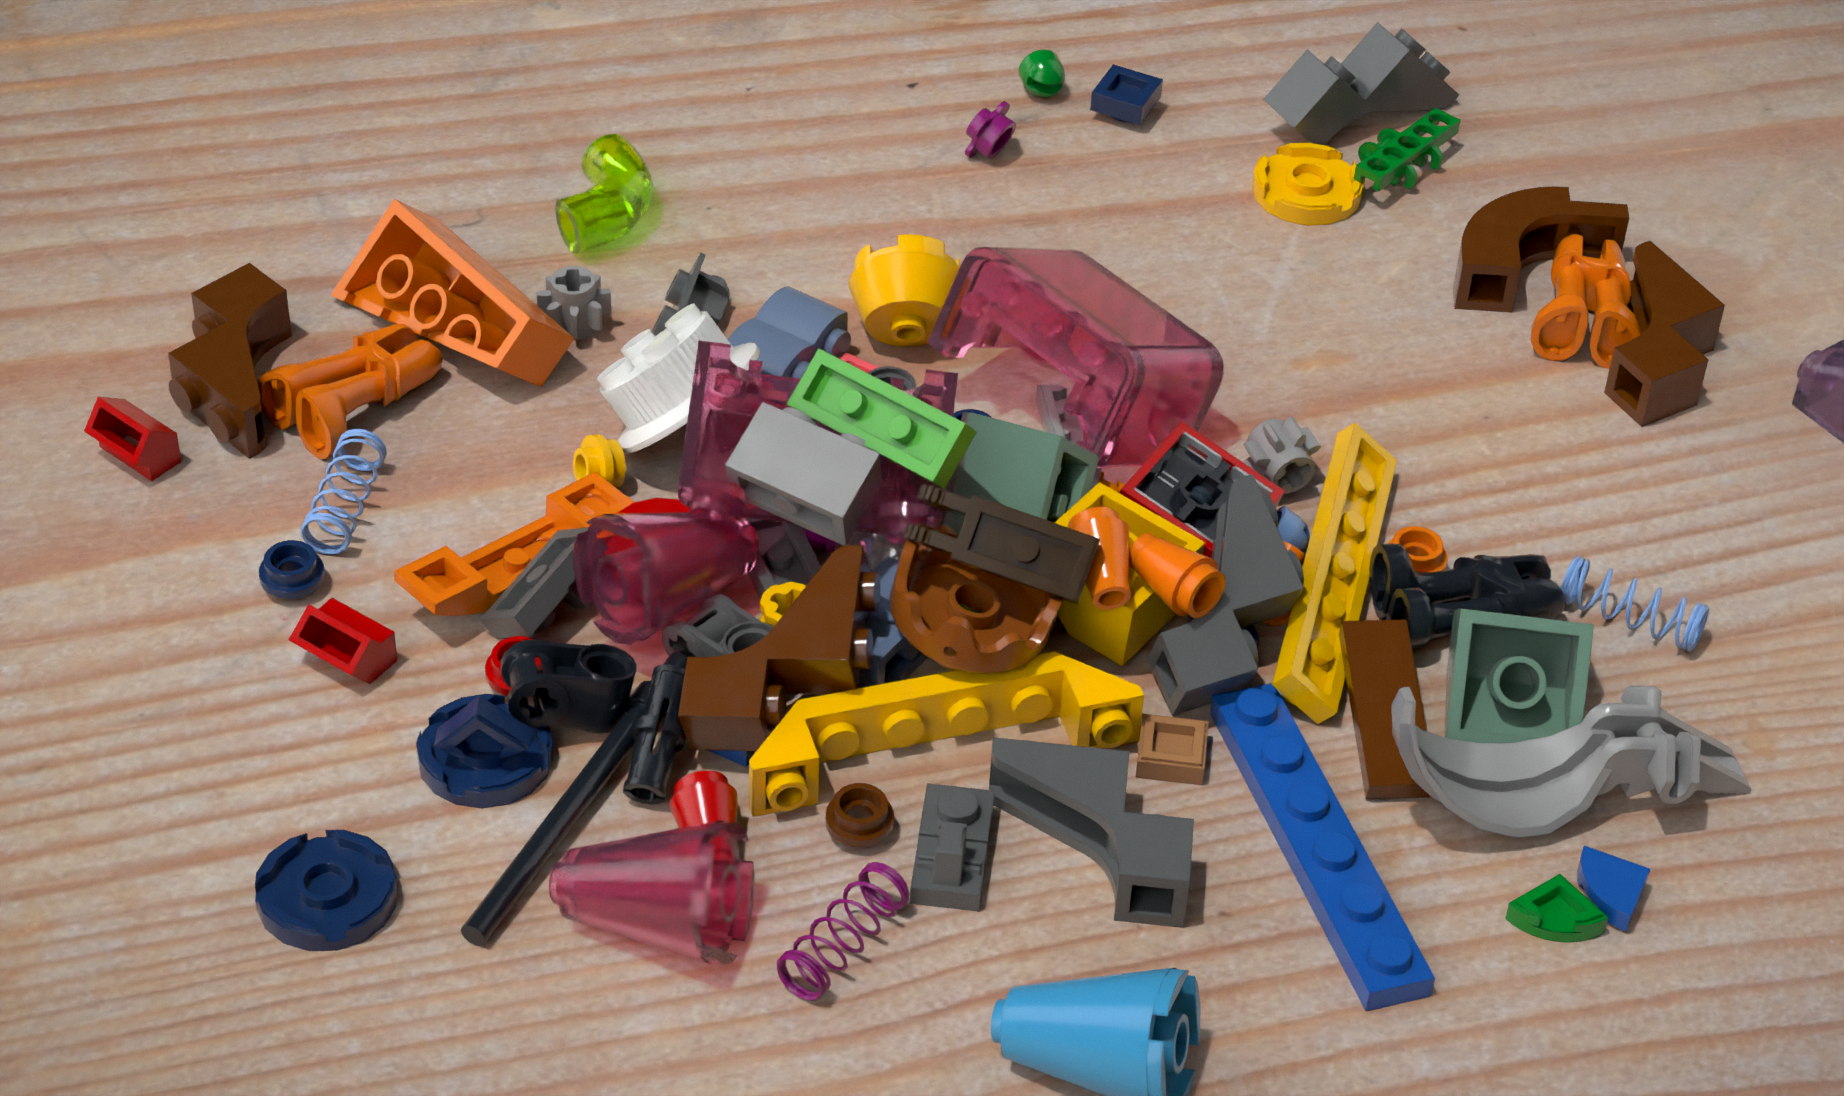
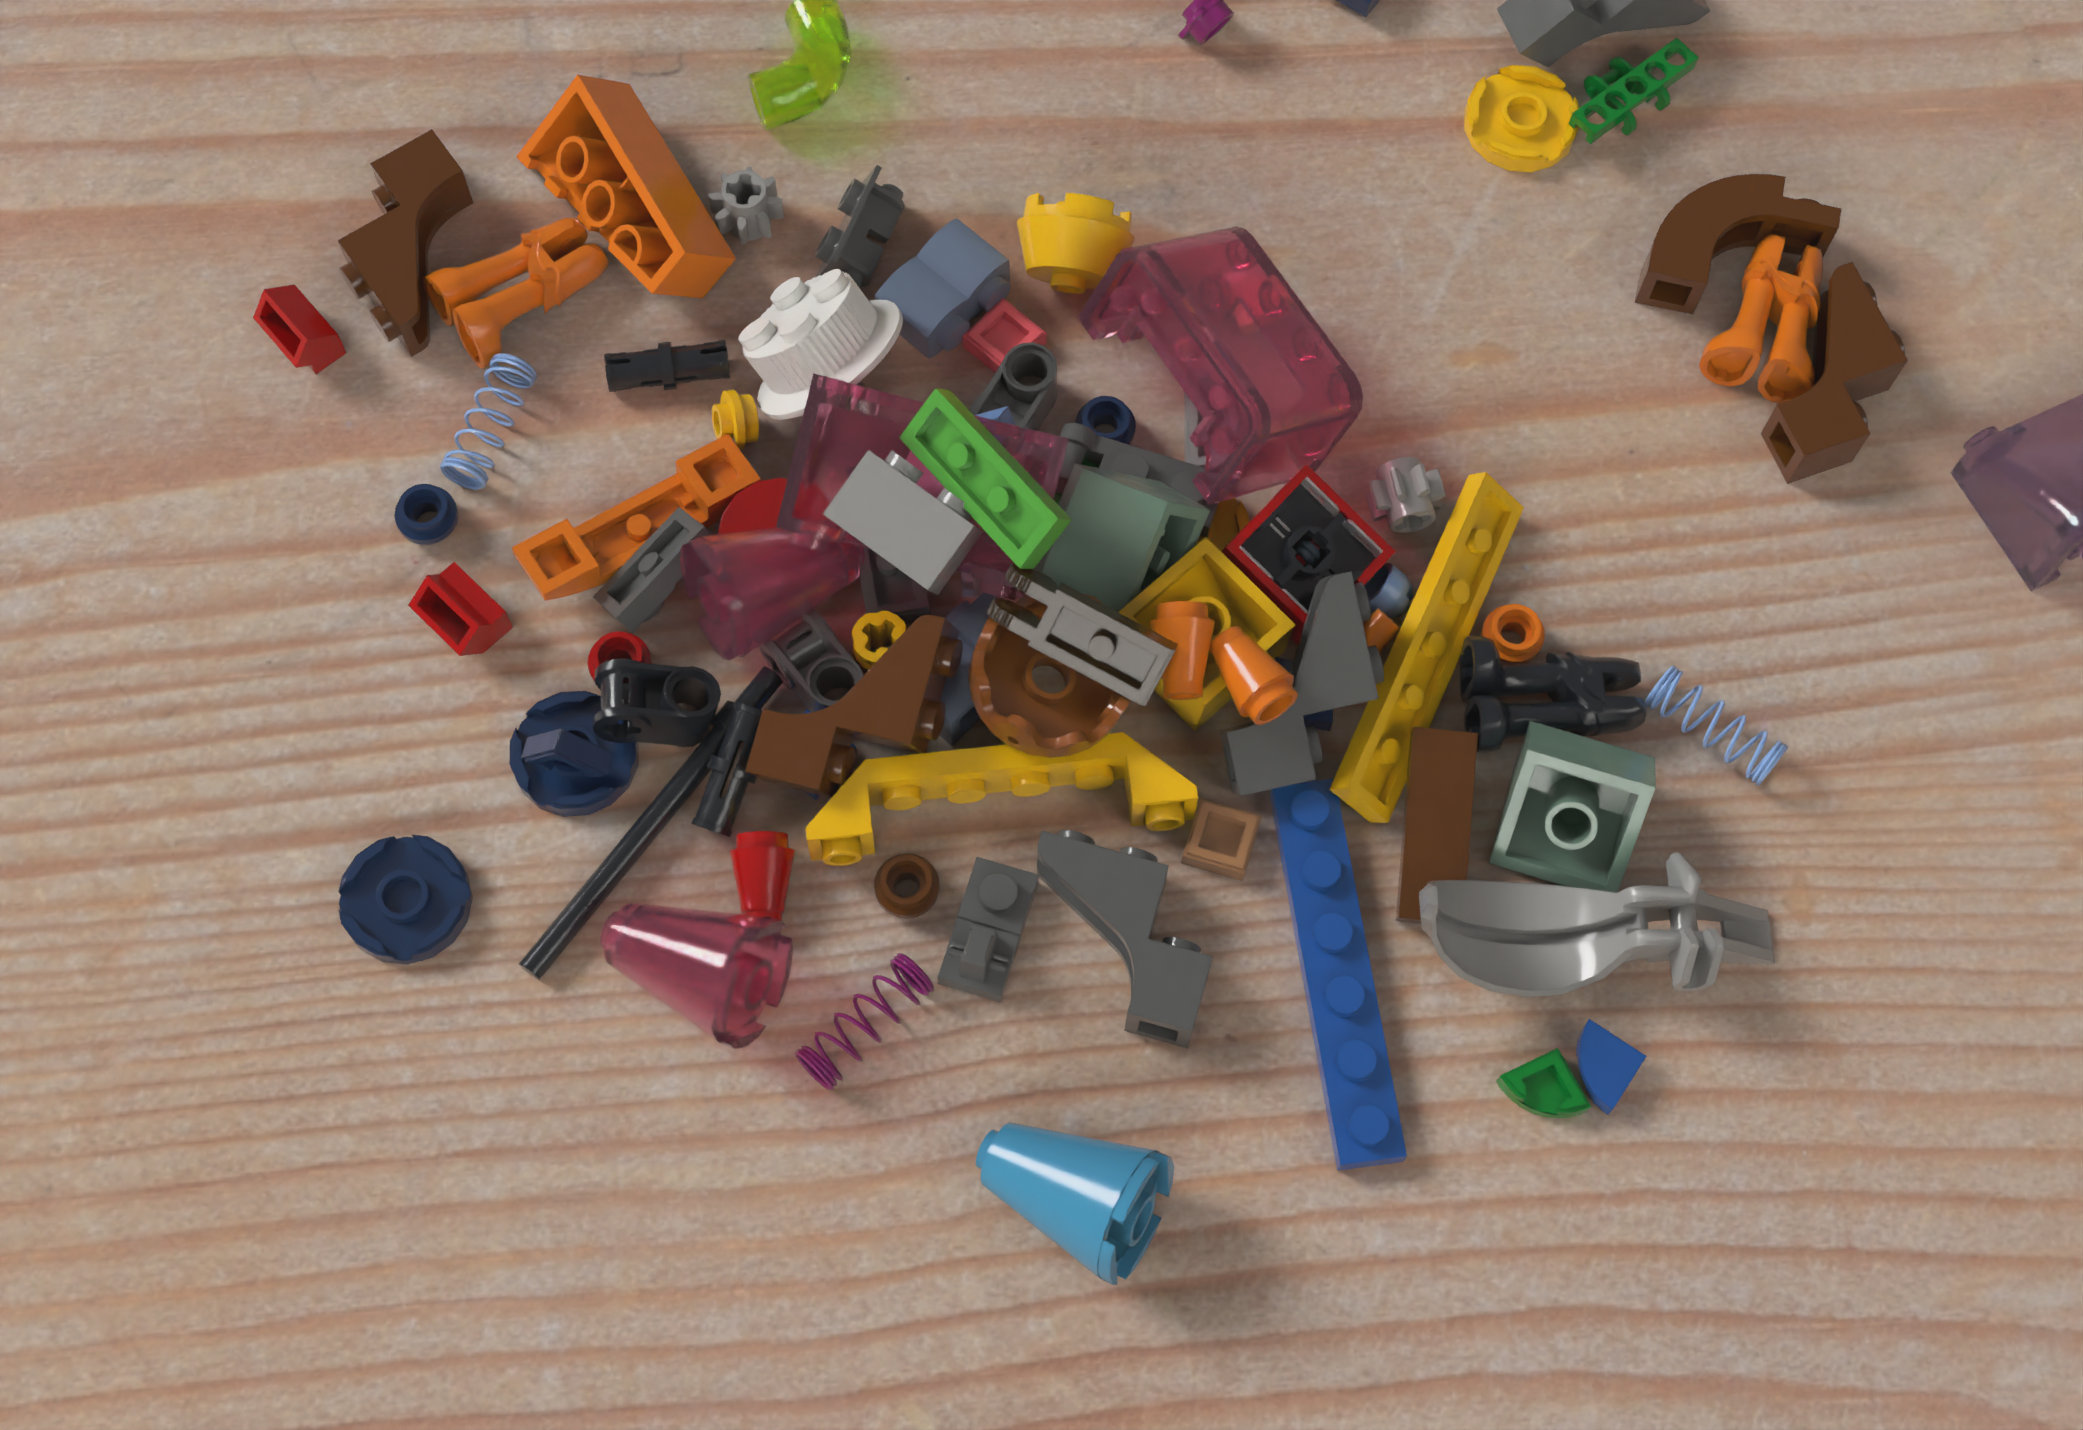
camera: 10 degrees right, 25 degrees up
(519, 434) = (667, 365): none -> black pin

